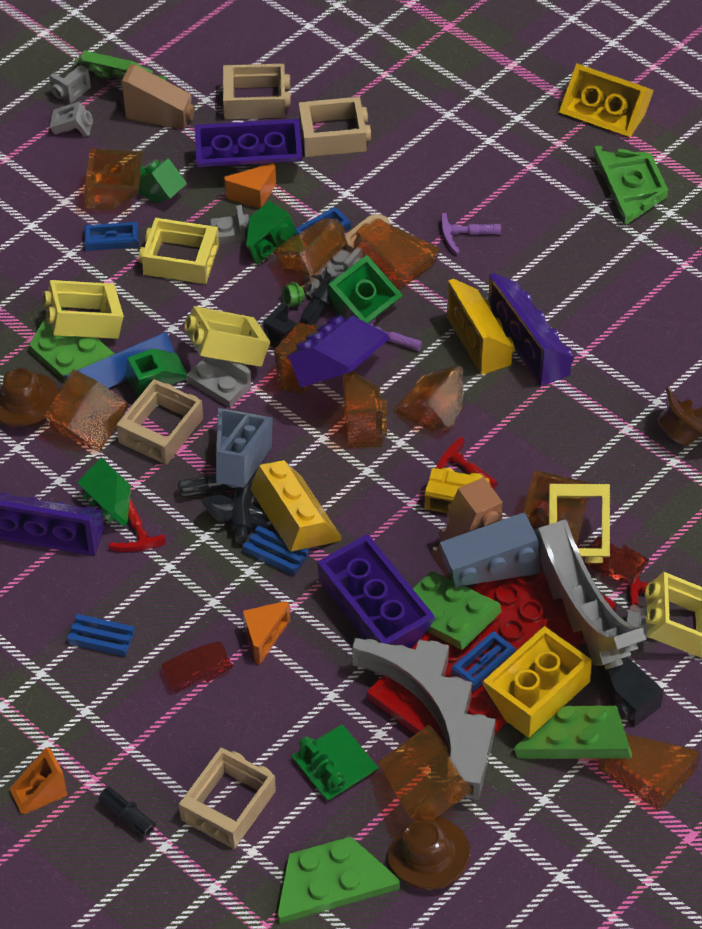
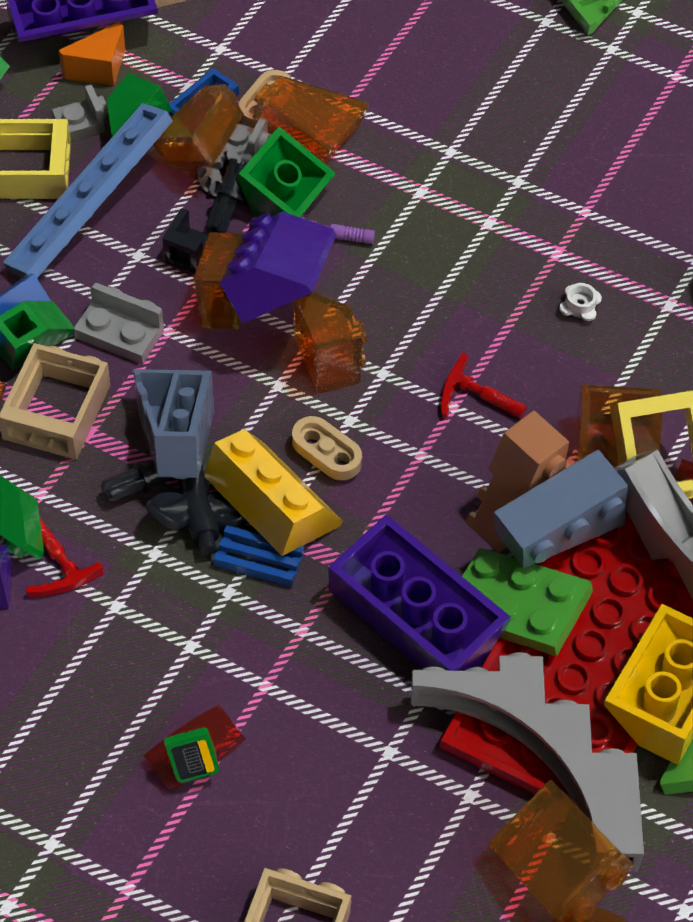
camera: 15 degrees left, 5 degrees up
(103, 631) = (77, 720): blue tile -> none
(191, 667) = (192, 755): none -> slope
(220, 279) = (88, 191): none -> medium blue plate
(227, 336) = (120, 267): light yellow window -> none
(264, 627) = (272, 672): orange slope -> none
(293, 295) = (188, 195): bright green plate -> none
(334, 761) = (421, 852): green hinge -> none
(345, 488) = (331, 448): none -> tan plate
(434, 399) = (415, 307): clear orange slope -> none
(443, 486) = (475, 430): yellow brick -> none
(458, 668) = (571, 692): blue tile -> none
(472, 229) = (396, 71): medium lavender piece -> none
(478, 328) = (445, 202): yellow slope -> none
(527, 327) = (510, 195): dark purple slope -> none
(559, 415) = (578, 294): none -> white plate

